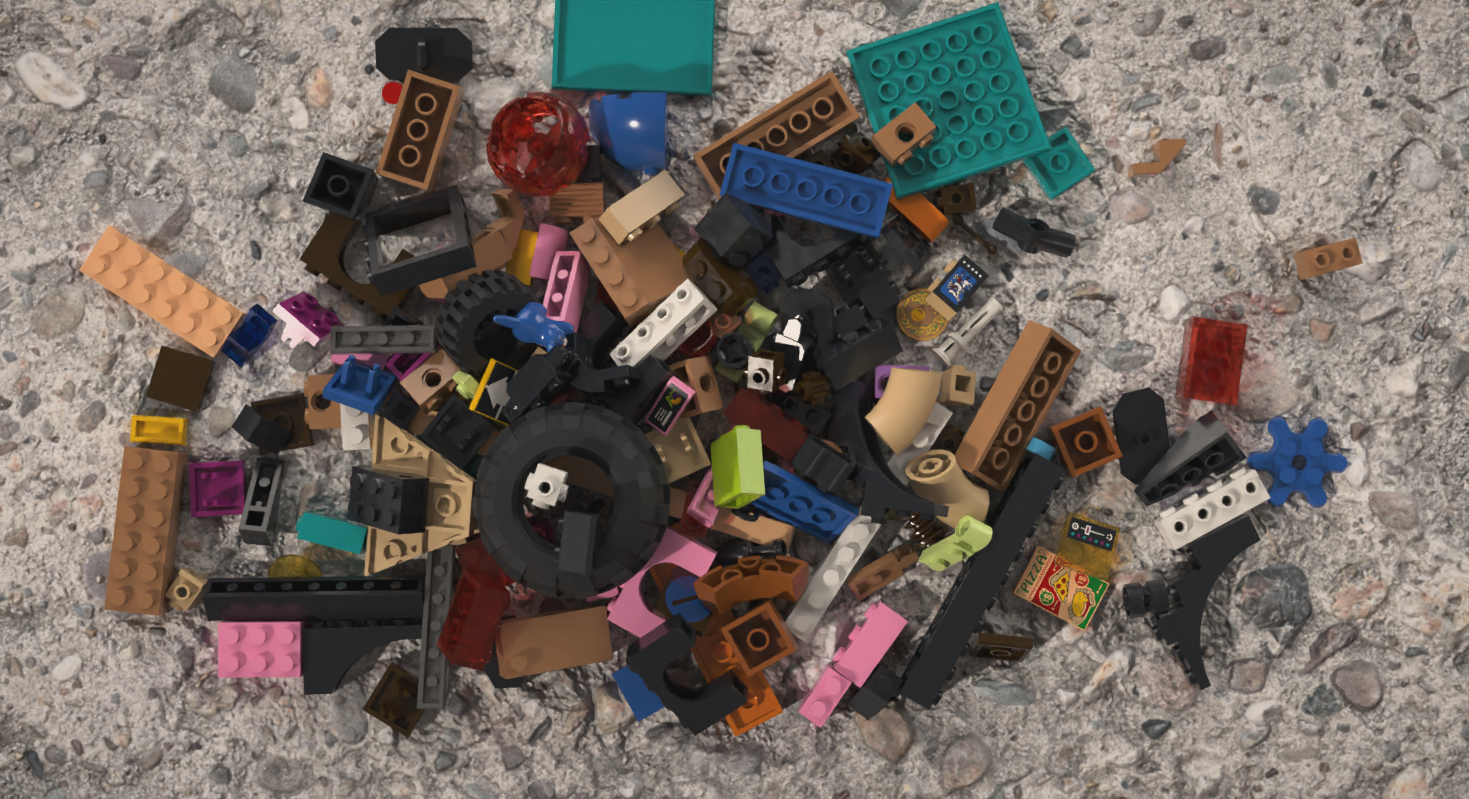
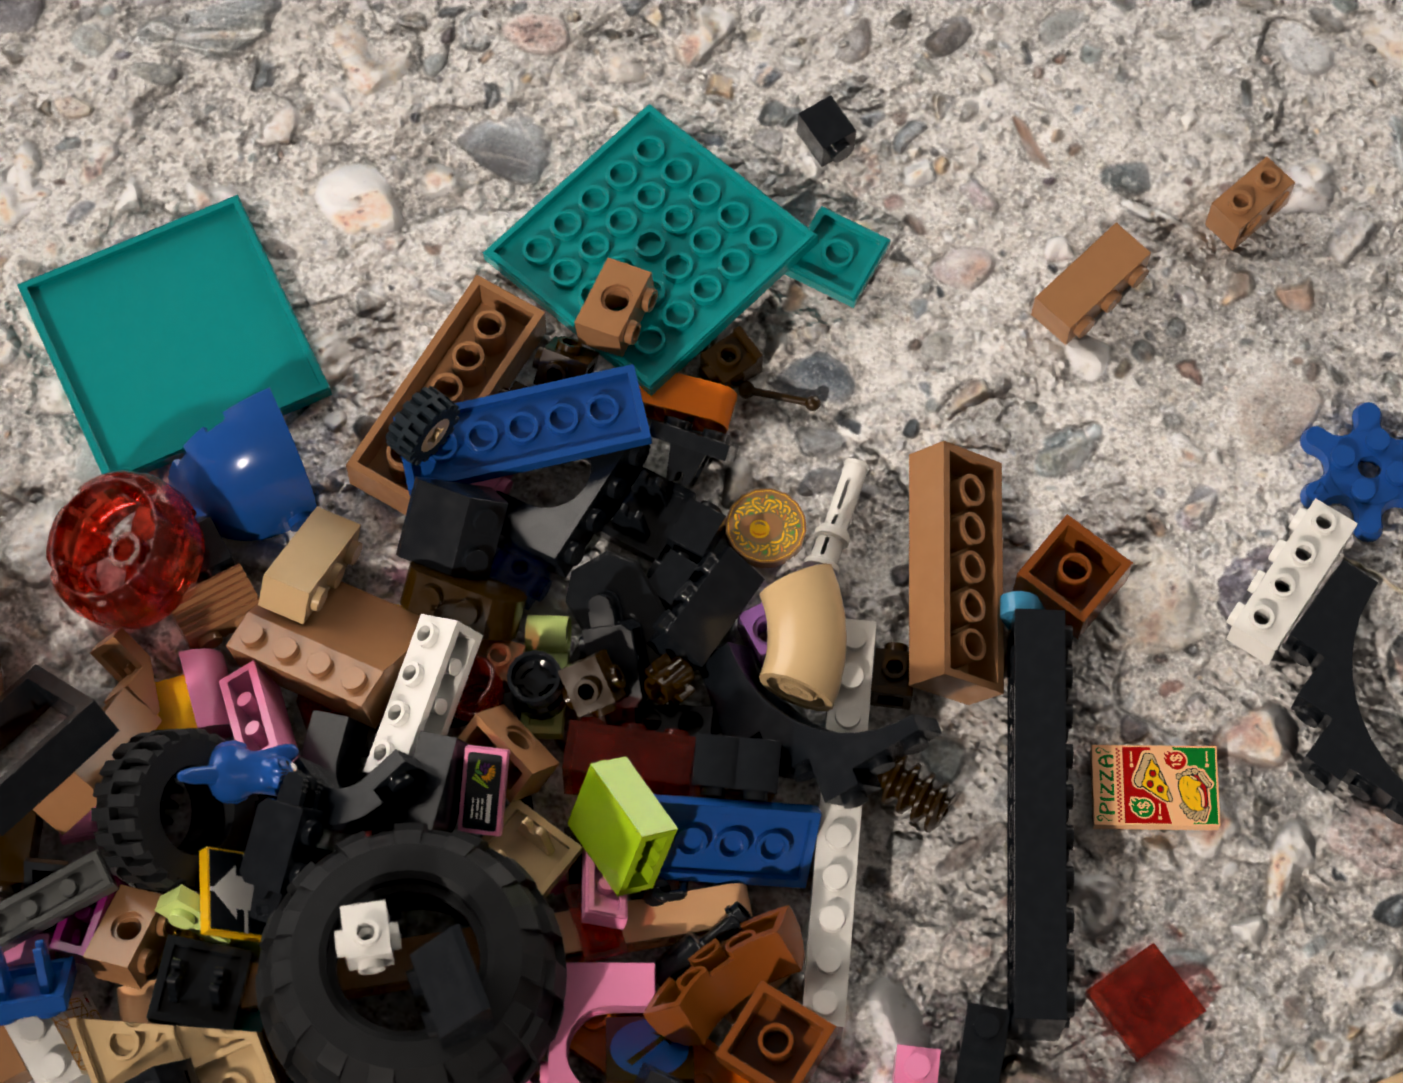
camera: 25 degrees left, 20 degrees down
(399, 410) = (98, 996): black panel -> none
(745, 163) = (422, 425): none -> black wheel
(868, 643) = (935, 988): bright pink brick -> none
(881, 571) = (898, 888): medium nougat hinge -> none
(941, 480) = (964, 720): tan brick -> none
(956, 287) = (790, 466): brick -> none
(965, 387) = (866, 592): tan brick -> none
(968, 538) = (989, 767): yellowish green plate -> none
(983, 709) = (1145, 1002): none -> clear red plate
(1001, 647) = (1118, 897): dark brown tile -> none
(1034, 234) = (855, 354): black piece -> none
(1087, 546) = (1157, 712): clear yellow plate -> none
(1096, 78) = (826, 131): none -> black brick
(1140, 432) = (1146, 530): black shield -> none
(1154, 595) = (1270, 742): black wheel -> none
(1163, 153) = (965, 179): medium nougat slope -> none
(1197, 453) = (1231, 521): black wedge -> none
(1201, 262) = (1092, 284): none -> medium nougat brick
(1211, 361) = (1178, 396): clear red brick -> none

